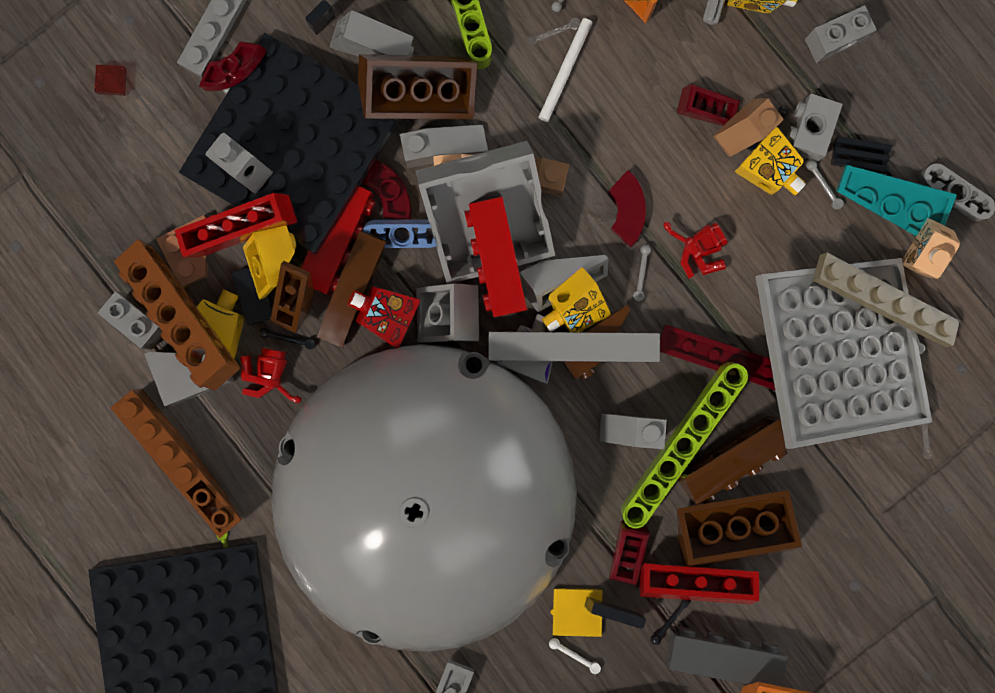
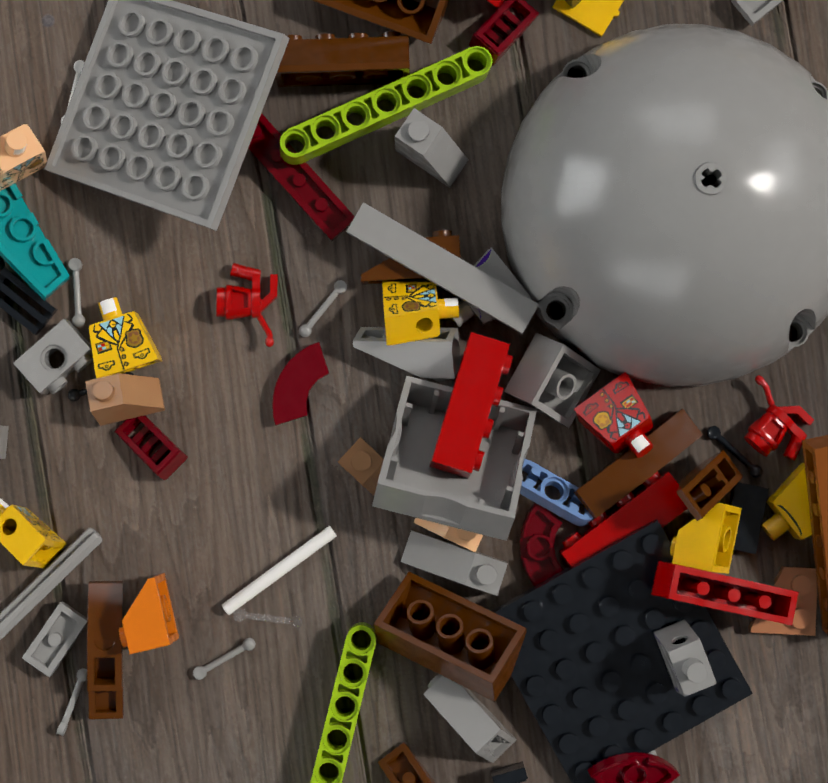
camera: 150 degrees left, 0 degrees up
(885, 300) = (90, 133): dark tan plate -> none

